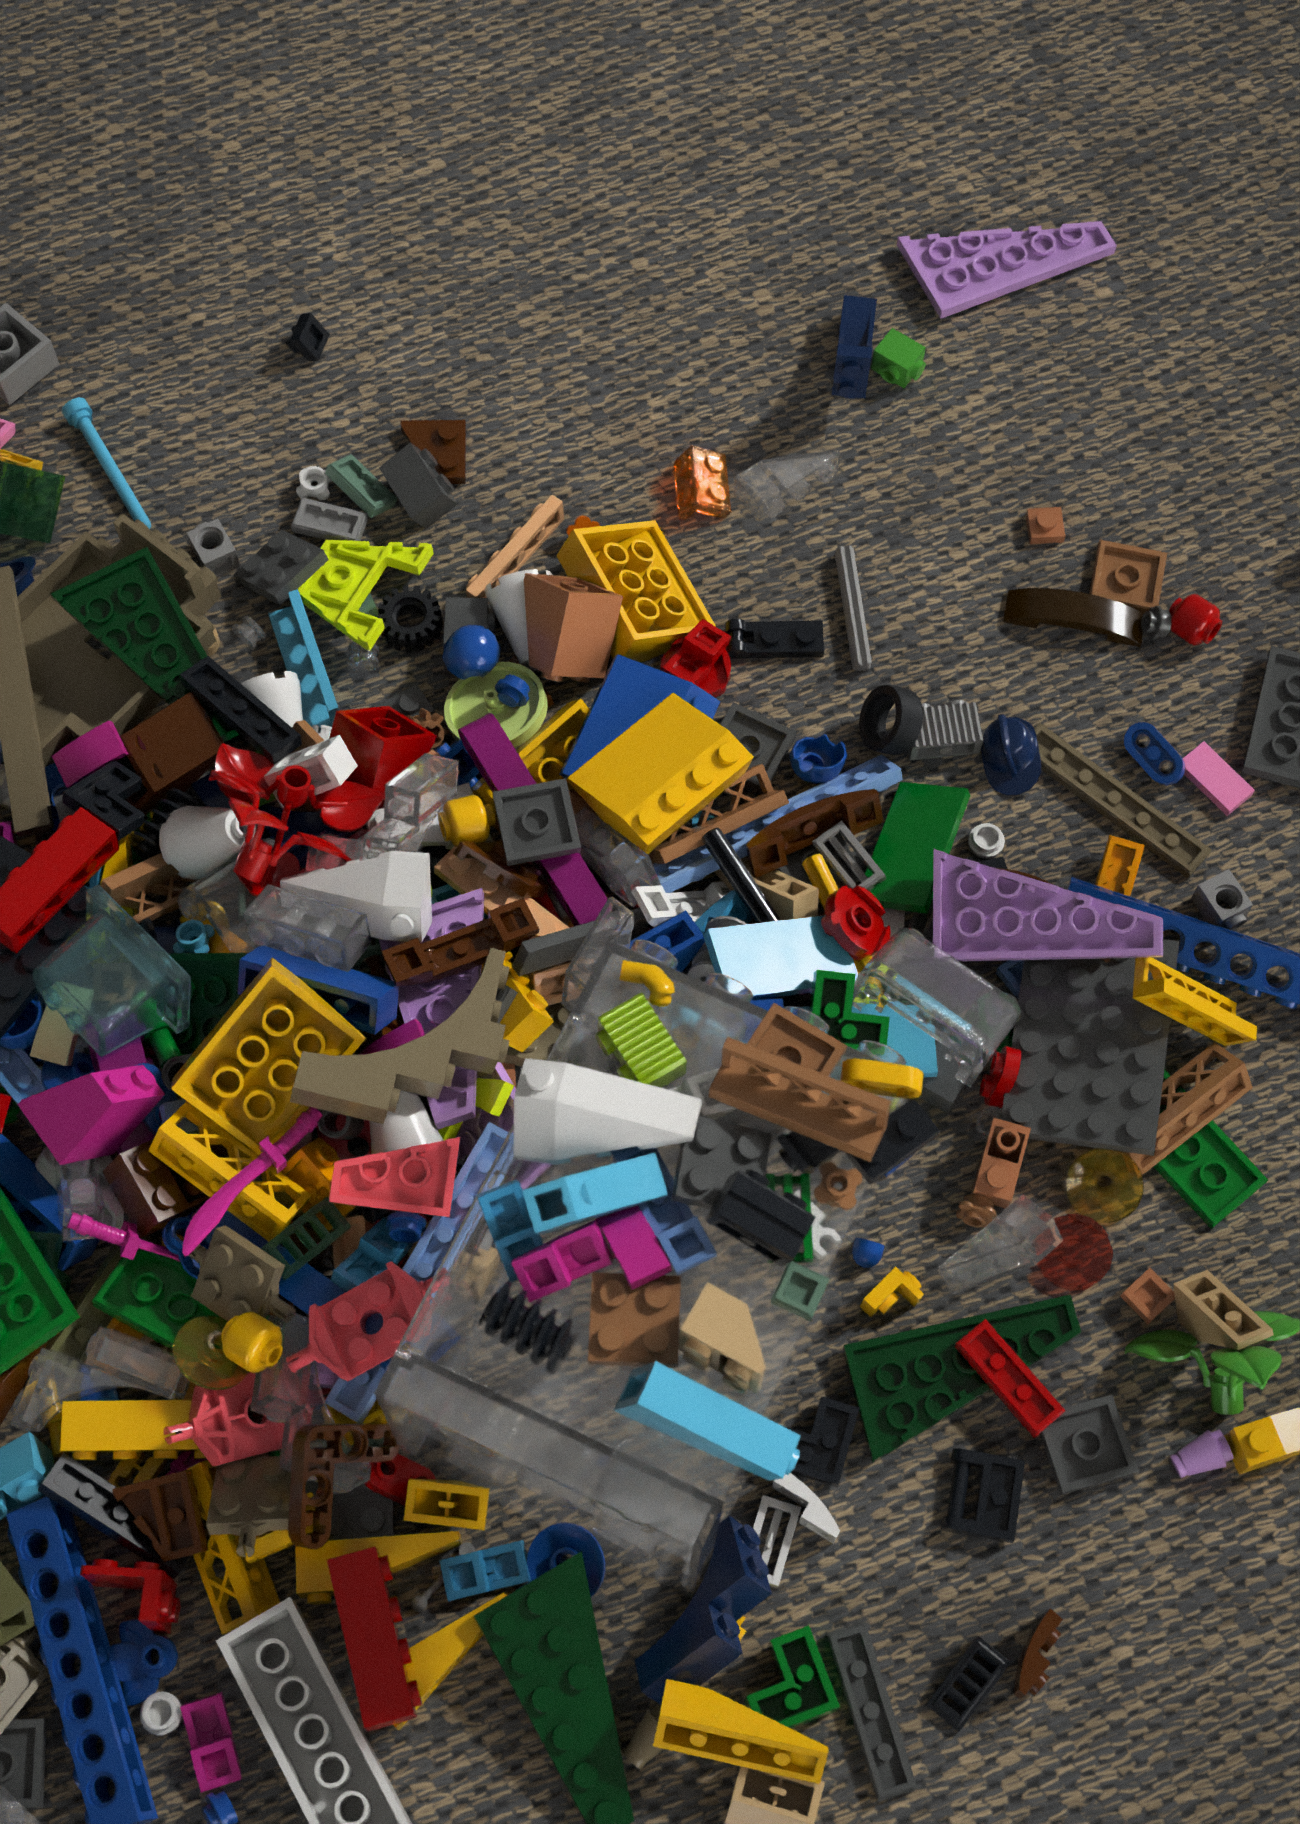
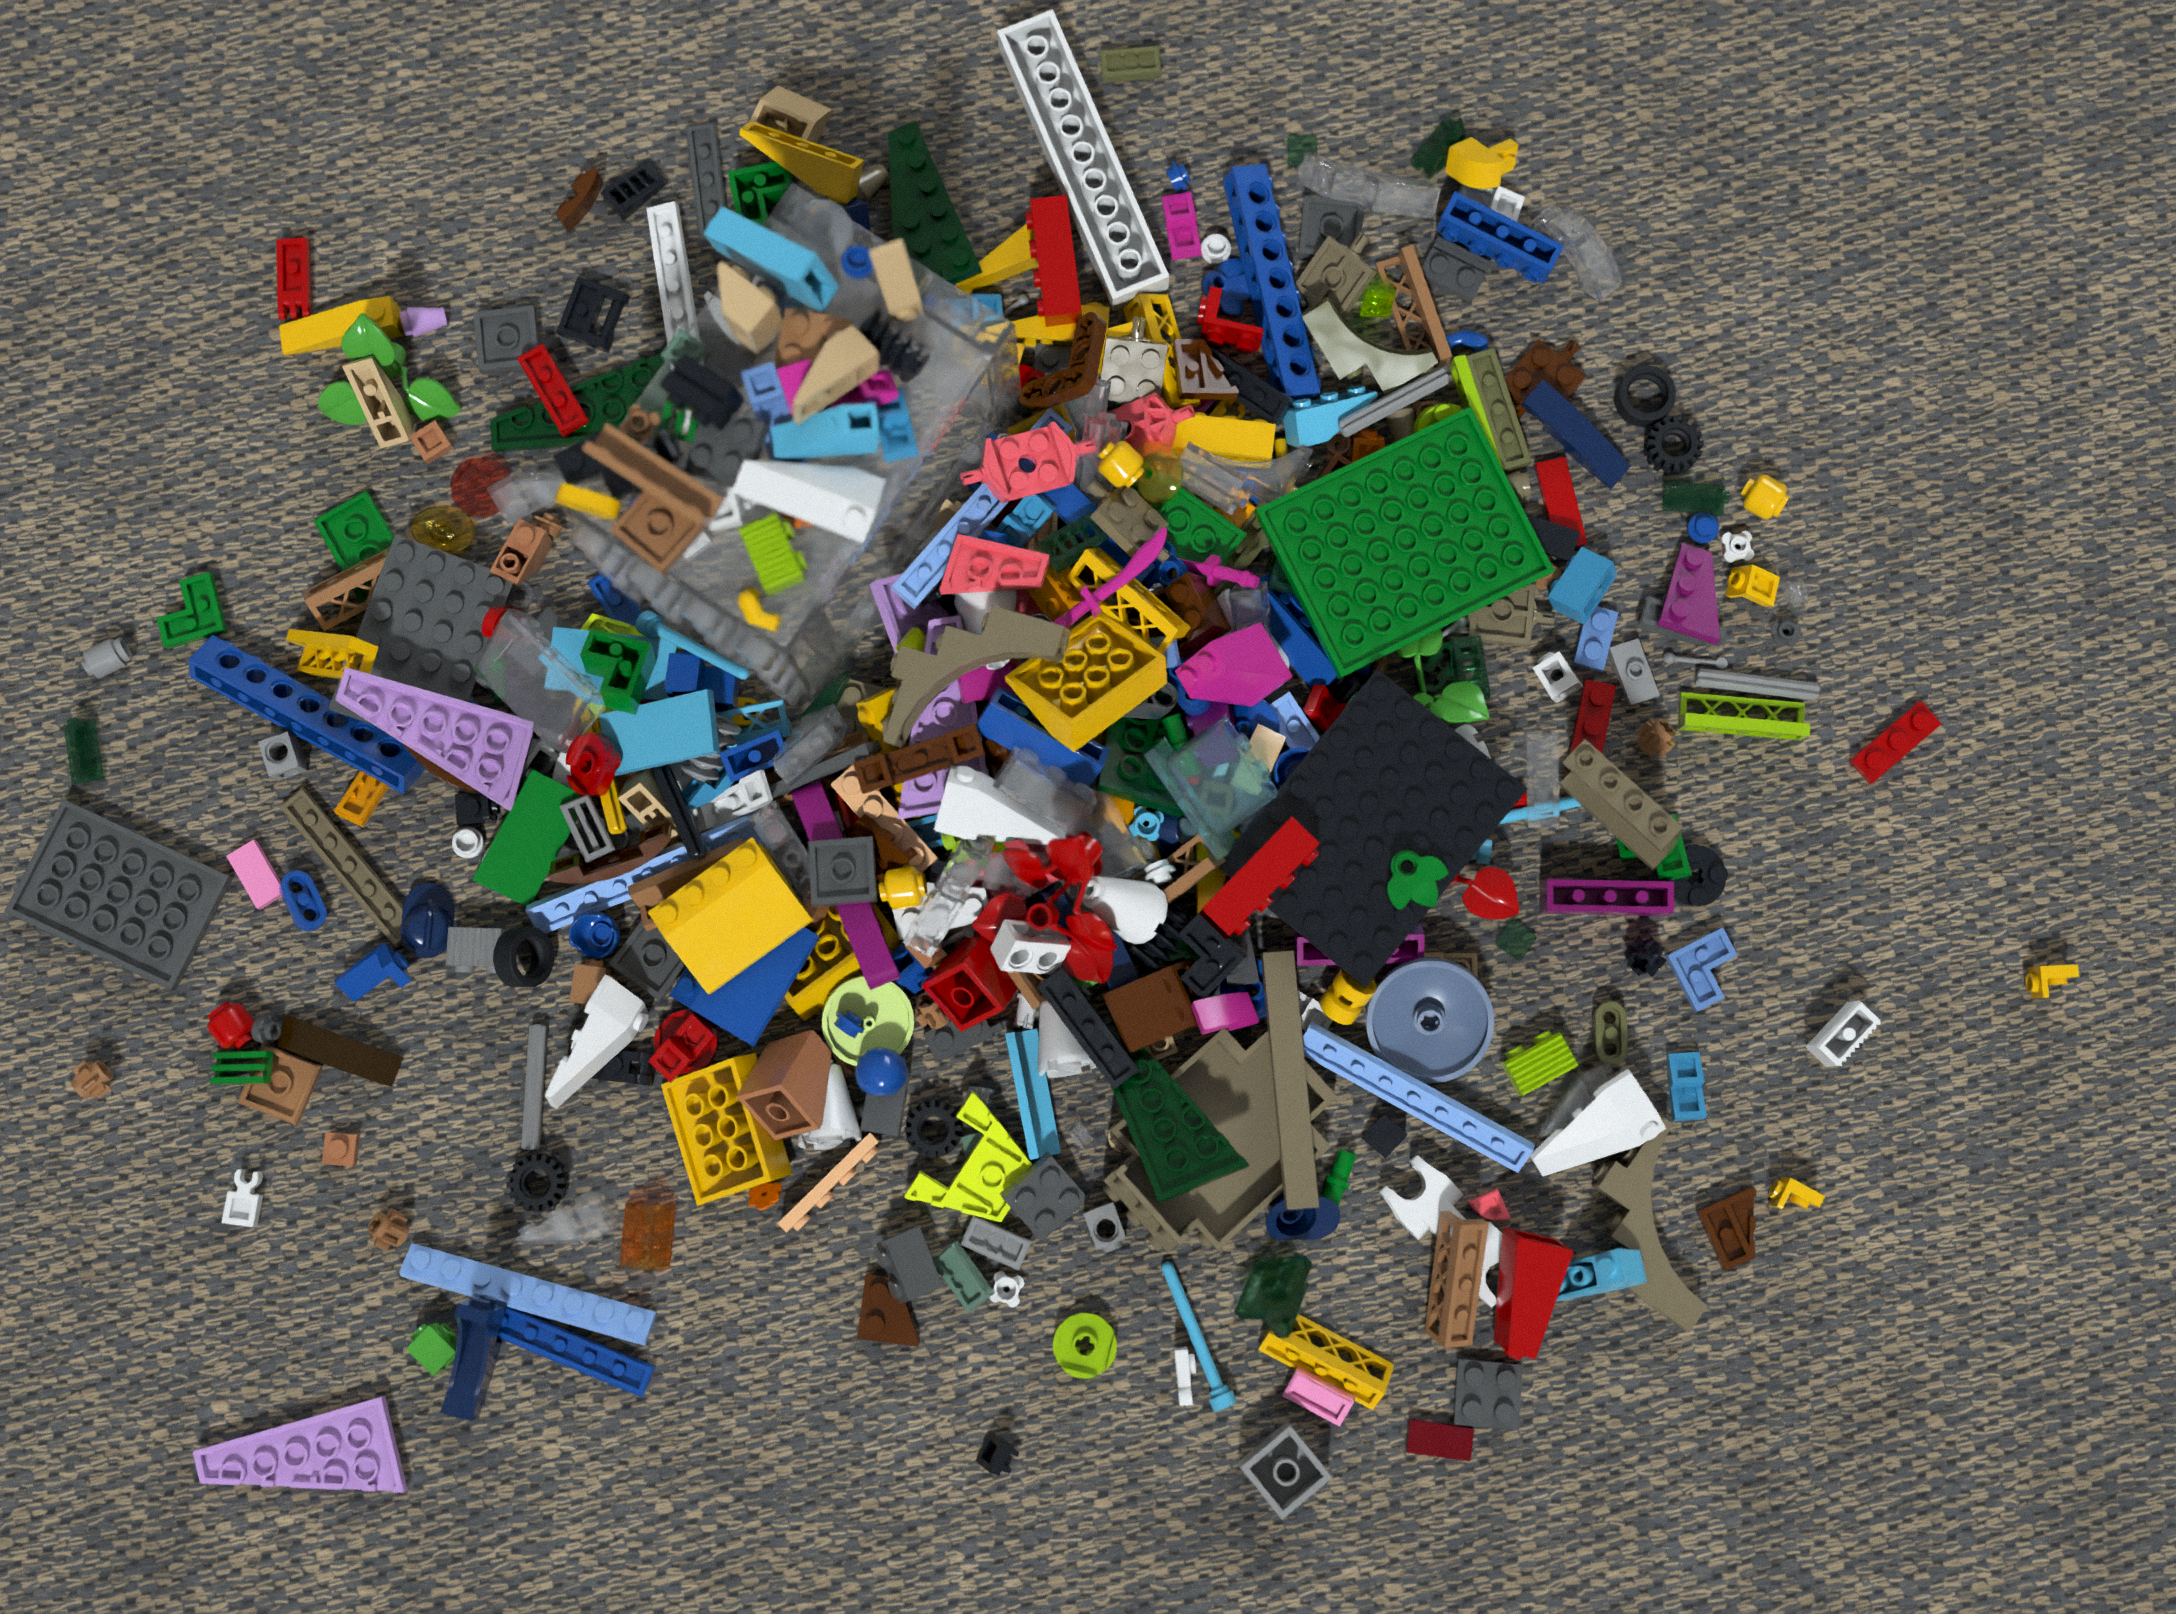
camera: 170 degrees left, 15 degrees up
(118, 433) = (1185, 1366): none -> white plate
(172, 884) = (1159, 872): none -> white plate
(230, 459) = (1069, 1355): none -> lime plate
(529, 1398) = (896, 281): none -> tan slope
(590, 1269) = (840, 366): none -> tan slope
(592, 1442) = (857, 262): none -> blue plate
(765, 381) = (576, 1351): none -> blue tile
(780, 662) = (610, 1027): none -> white wedge
(811, 709) = (586, 980): none -> medium nougat brick
(815, 417) = (528, 1294): none -> light blue plate
(833, 501) = (519, 1176): none -> black tyre
(868, 1504) = (671, 268): none -> white plate
(973, 453) = (388, 1229): none -> medium nougat gear
(1049, 703) = (372, 970): none -> blue bracket
(1133, 462) = (243, 1206): none -> white plate
(1170, 576) = (221, 1067): none -> green tile

